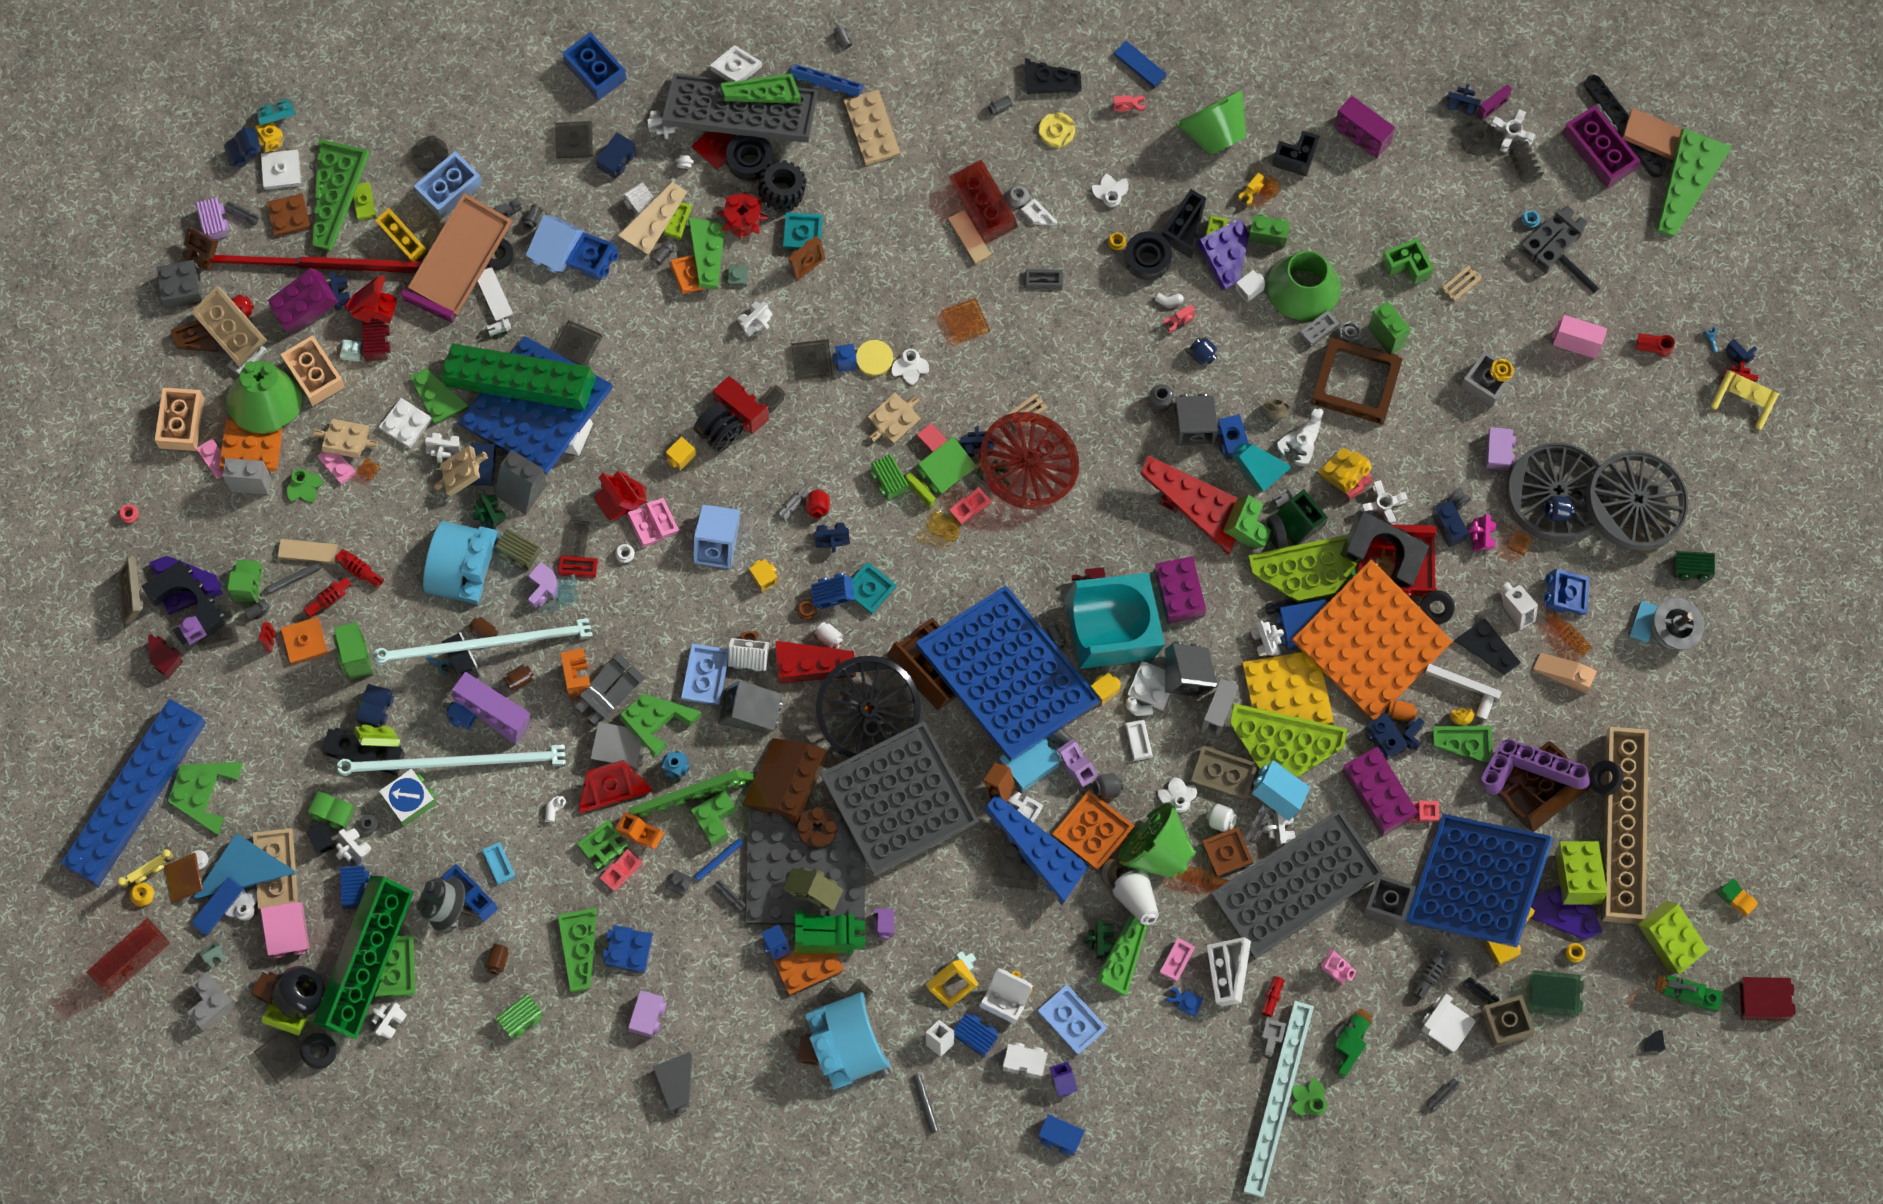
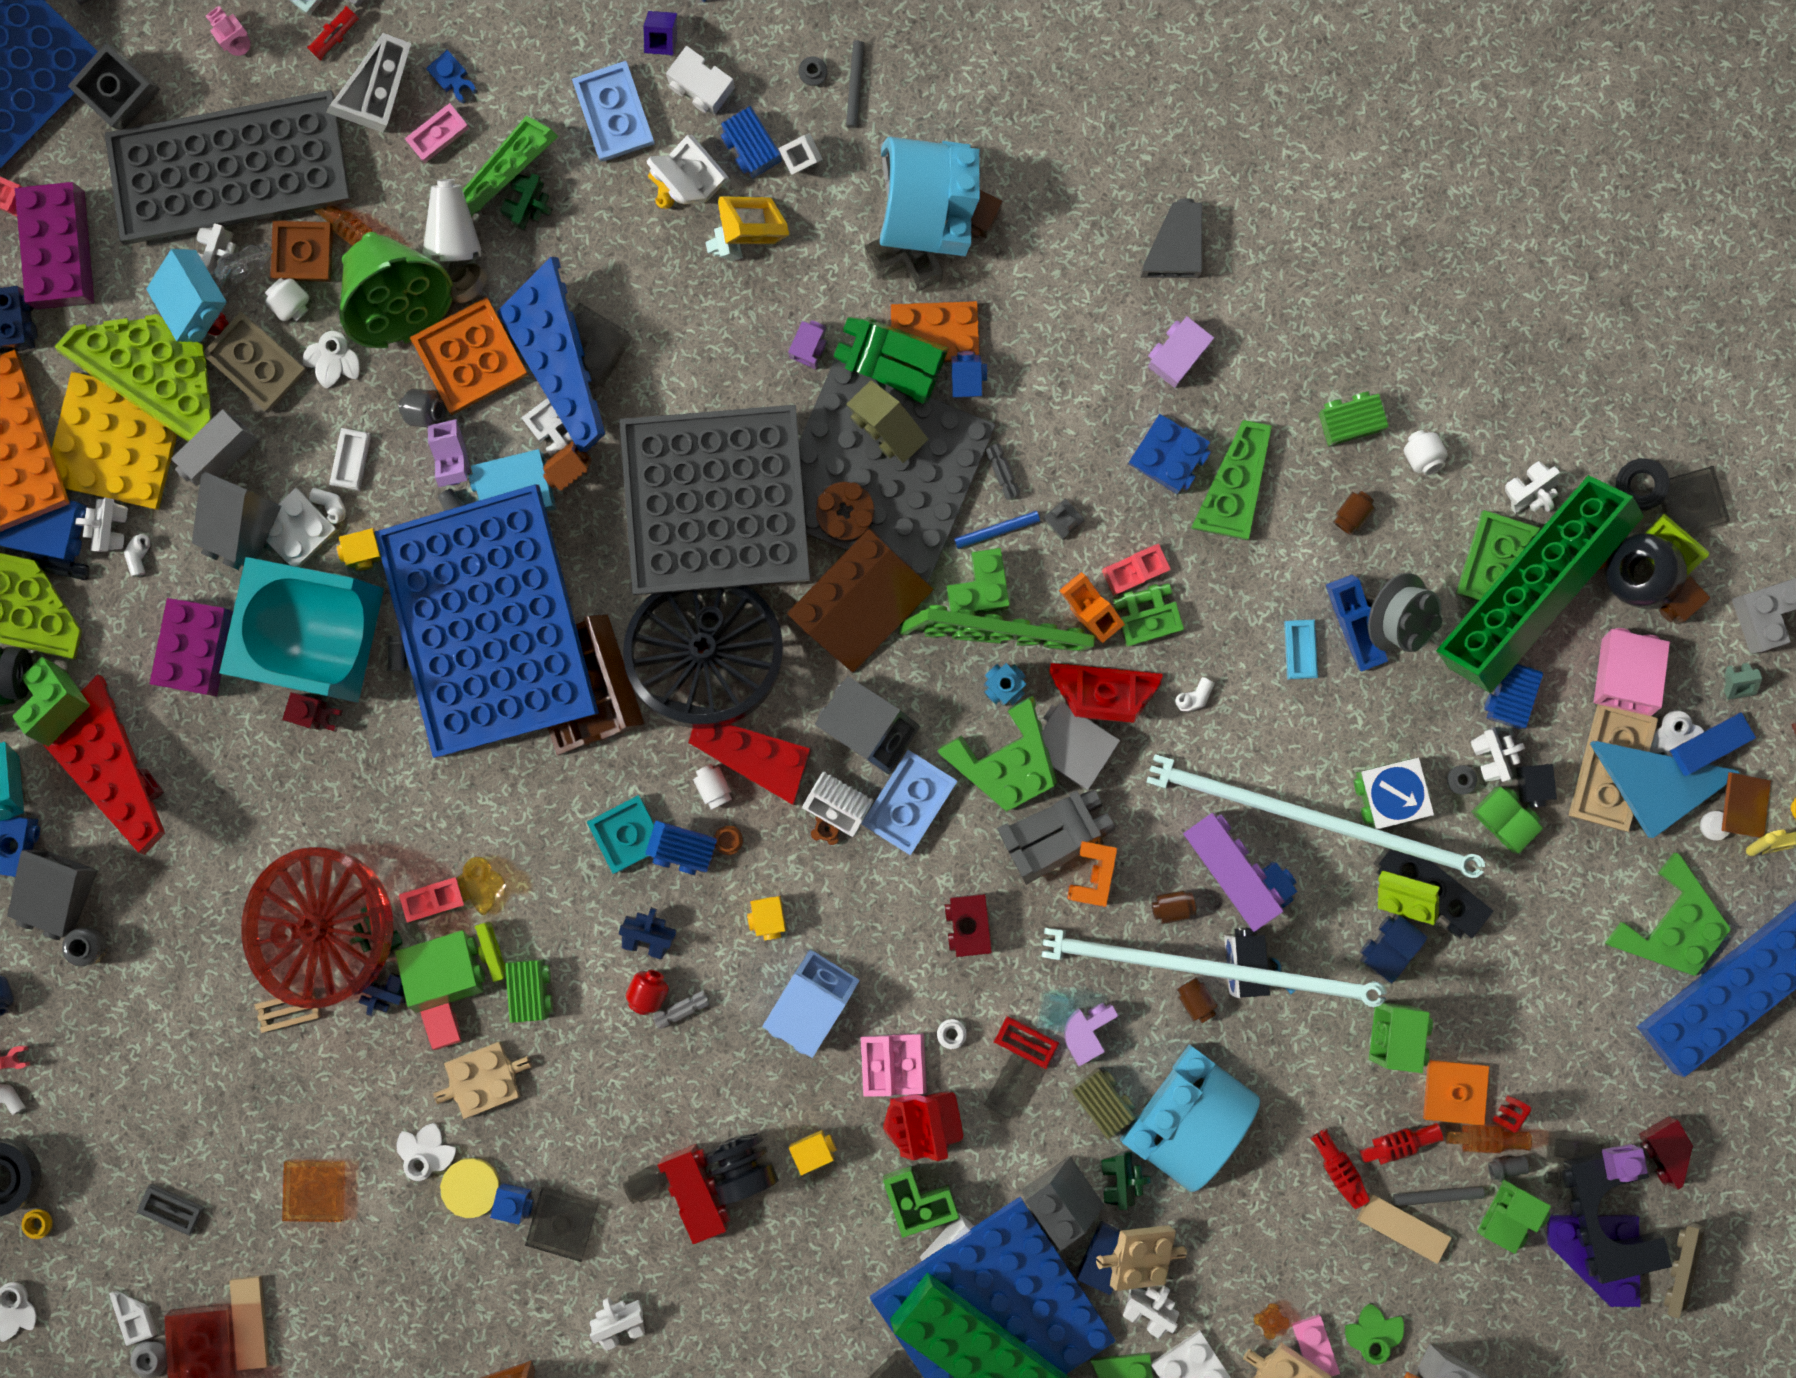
camera: 150 degrees left, 15 degrees up
(277, 619) = (1489, 1139): none -> clear orange hinge
(465, 1014) = (1425, 452): none -> white head
(605, 446) = (916, 1210): none -> bright green brick
(635, 607) = (979, 940): none -> dark red brick
(956, 1105) = (812, 79): none -> dark grey plate
(1242, 633) = (134, 554): none -> white arm

